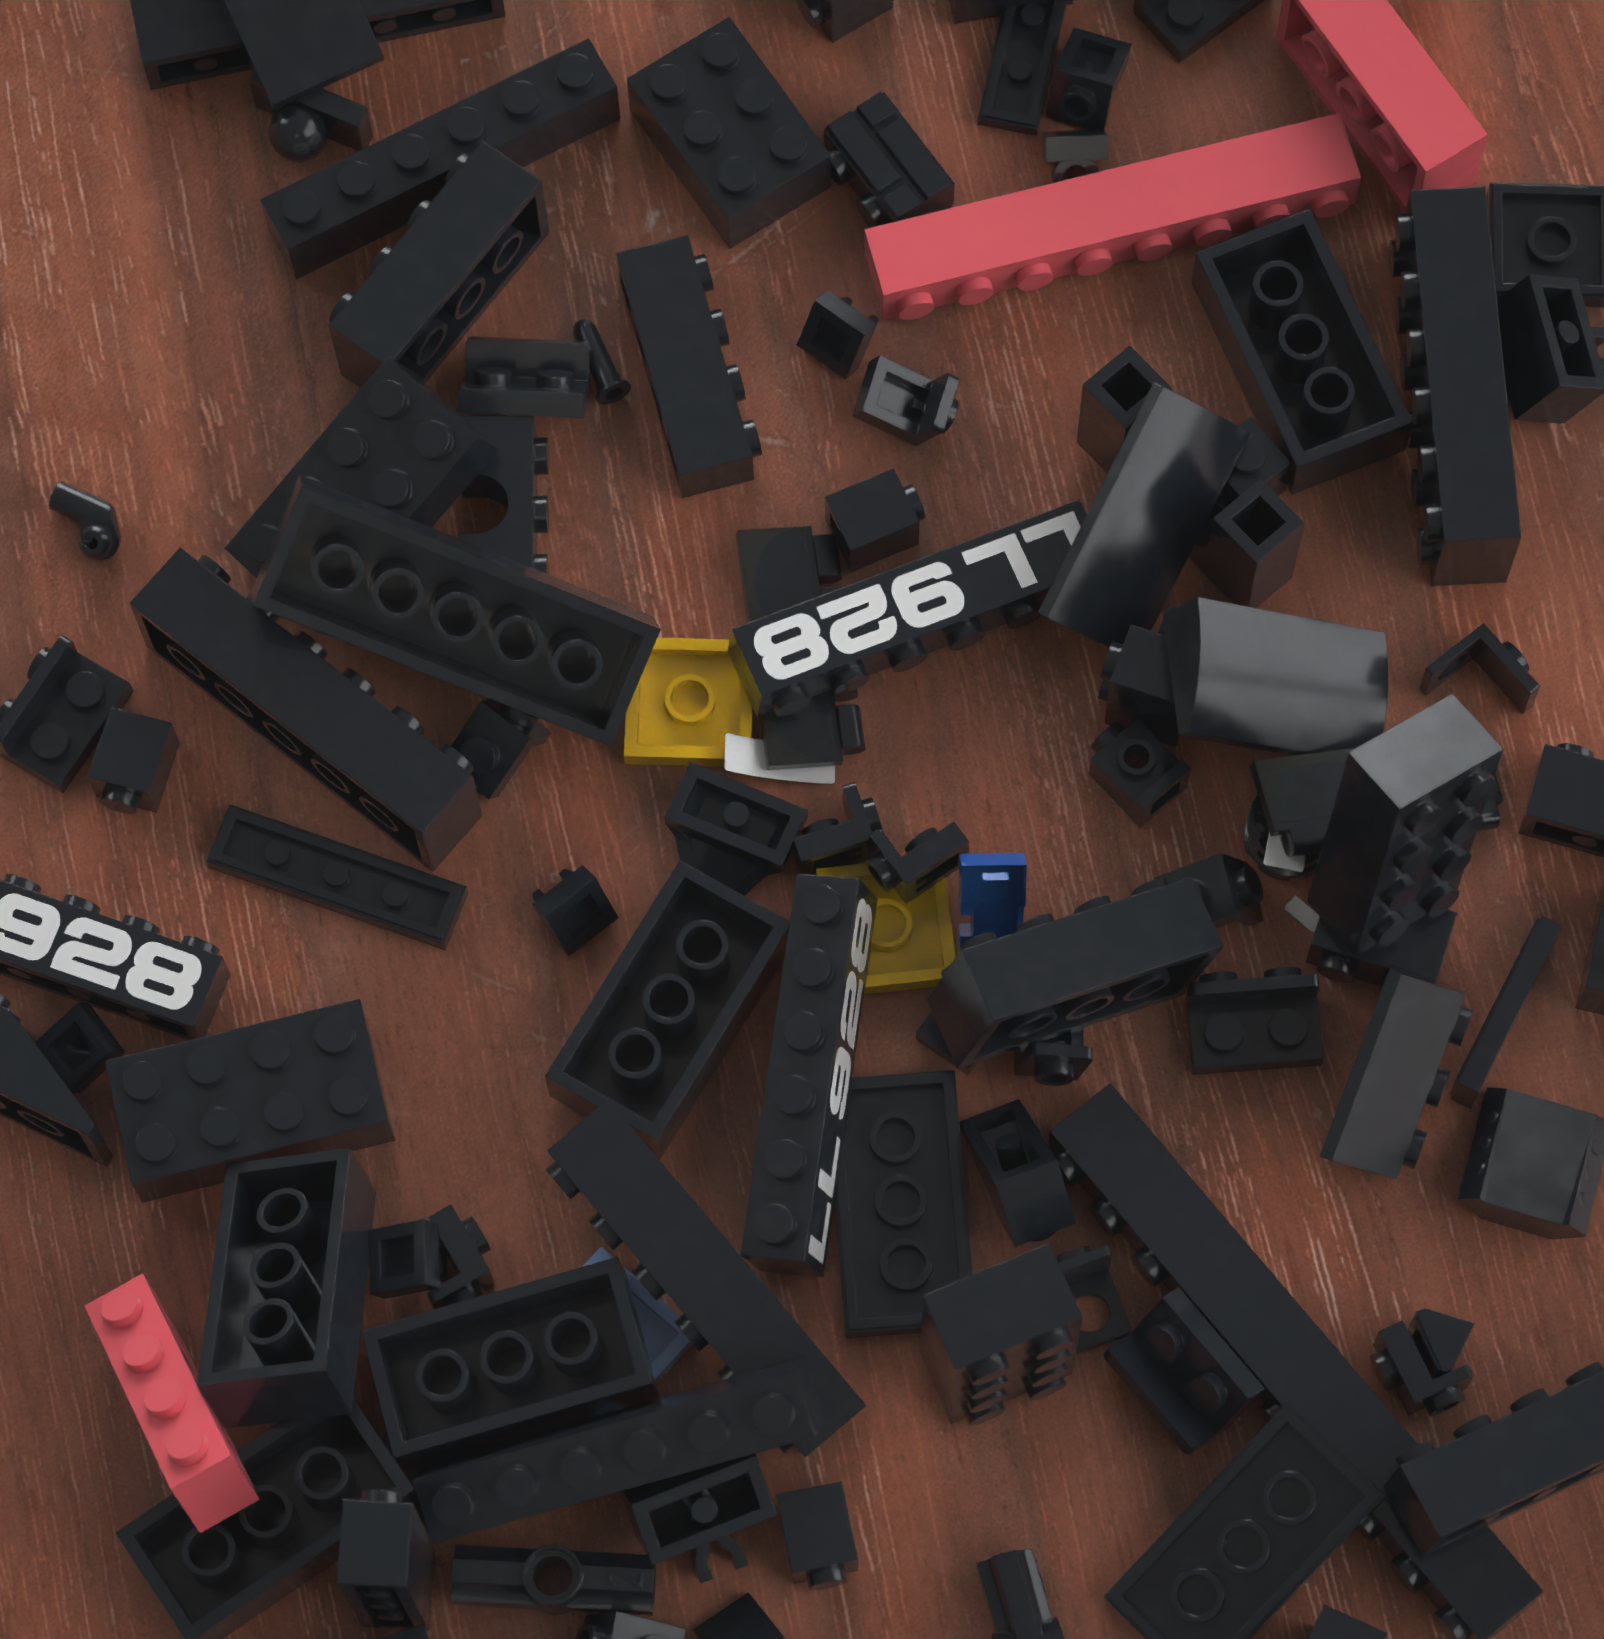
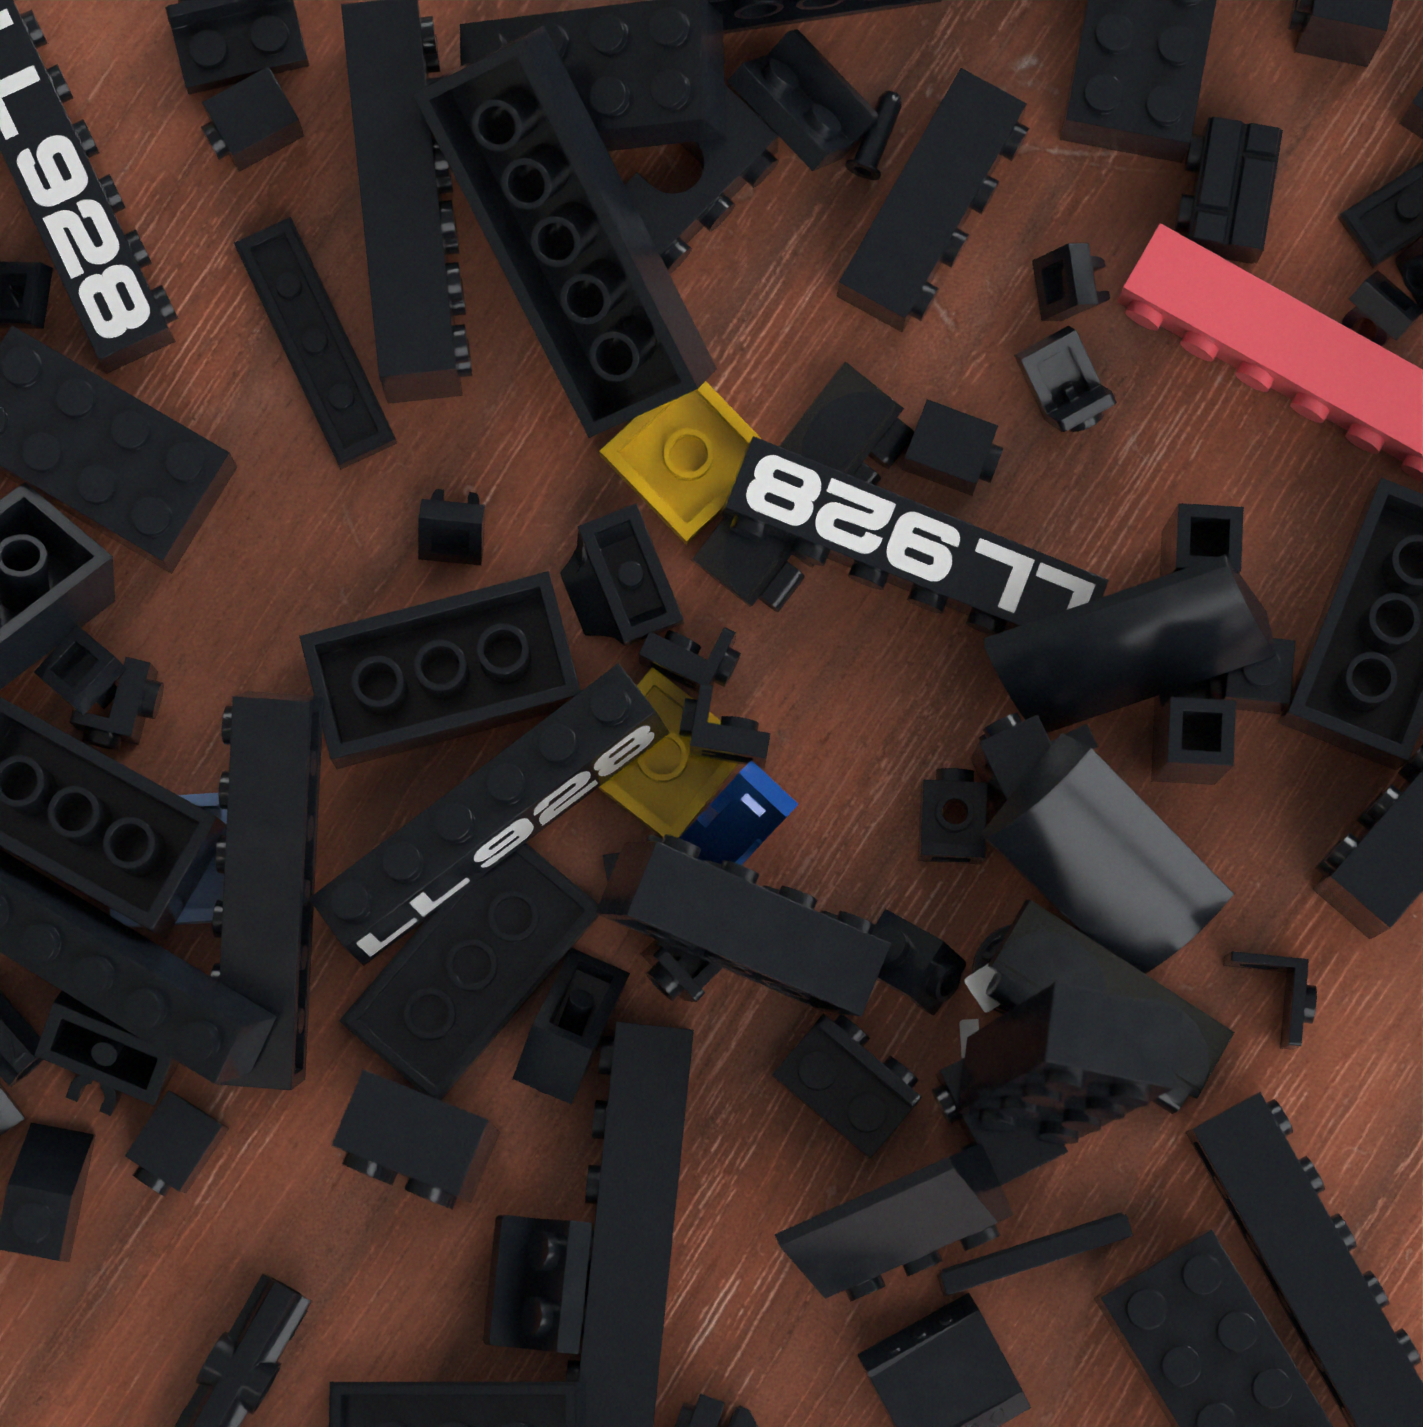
camera: 40 degrees right, 10 degrees up
(497, 743) = (508, 356): black bracket -> none
(747, 757) = (679, 536): white sticker -> none
(1089, 1275) = (537, 1140): black bracket -> none

